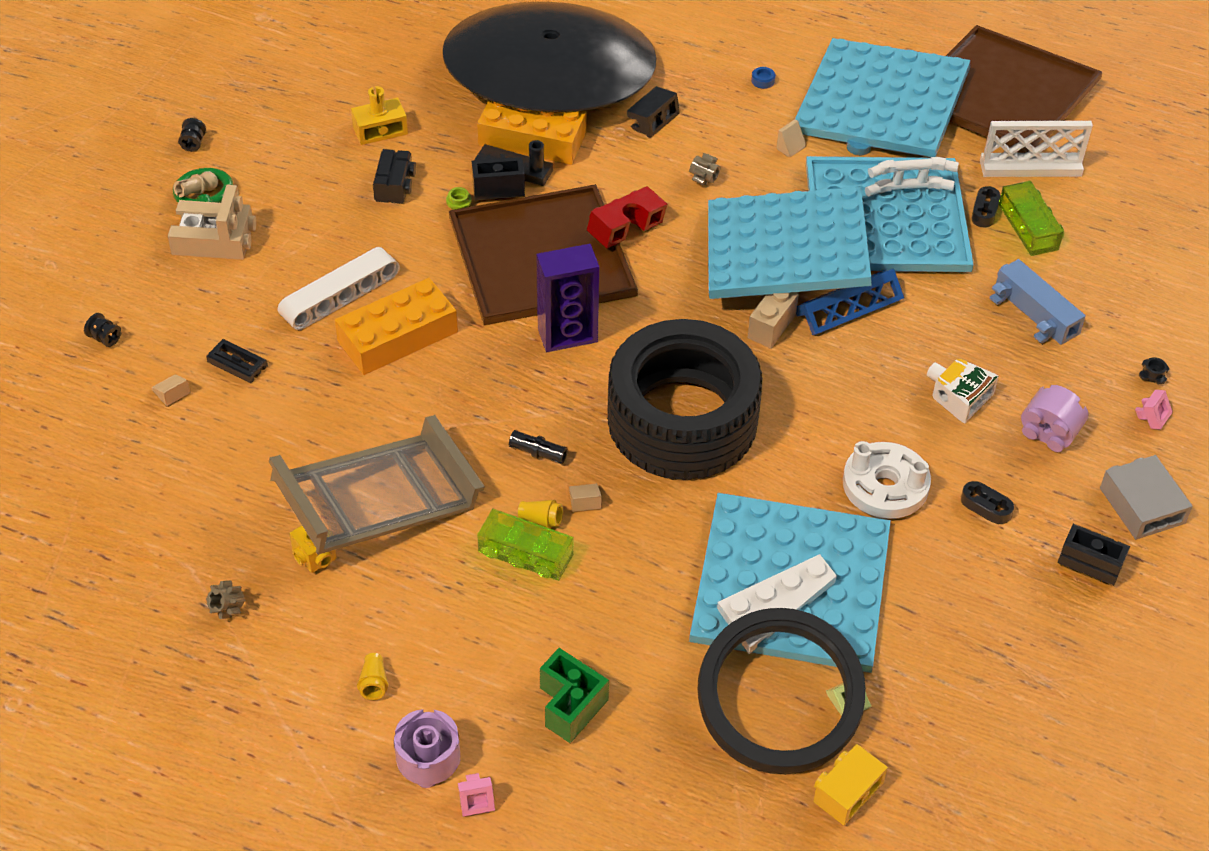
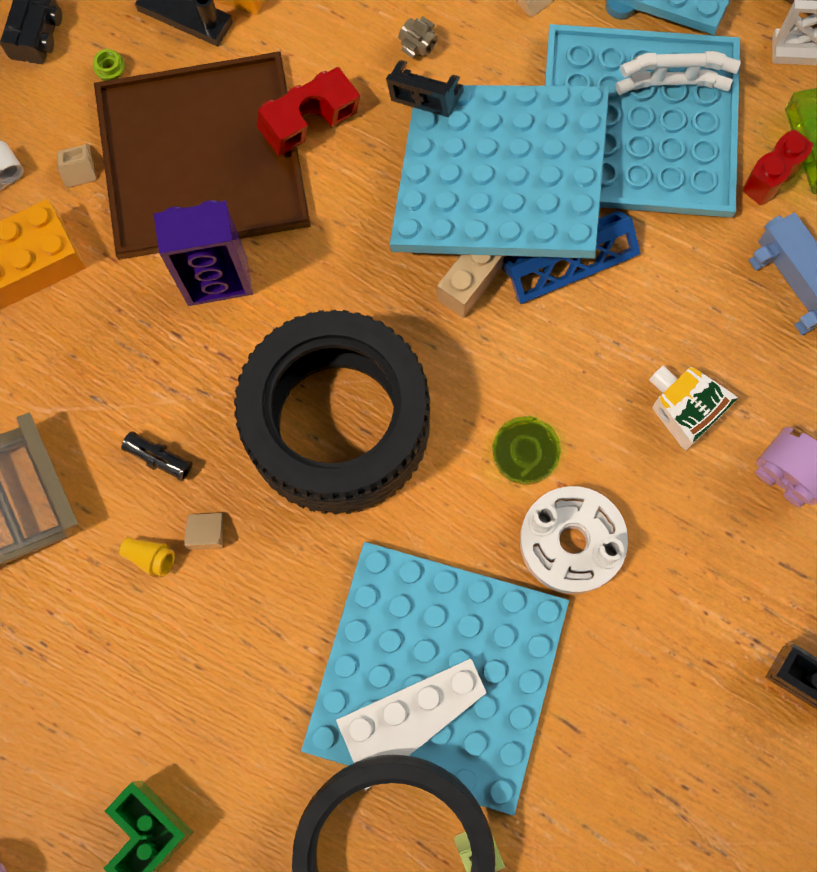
camera: 10 degrees right, 25 degrees up
(441, 265) = (76, 165): none -> tan slope
(498, 178) = (156, 38): black brick -> none
(525, 544) = (120, 605): clear neon green brick -> none
(717, 198) = (423, 91): none -> black hinge
(837, 428) = (526, 450): none -> clear neon green tile
(985, 206) = (773, 116): black beam -> none
(987, 502) = (698, 572): black beam -> none
(999, 236) = (777, 167): none -> red brick

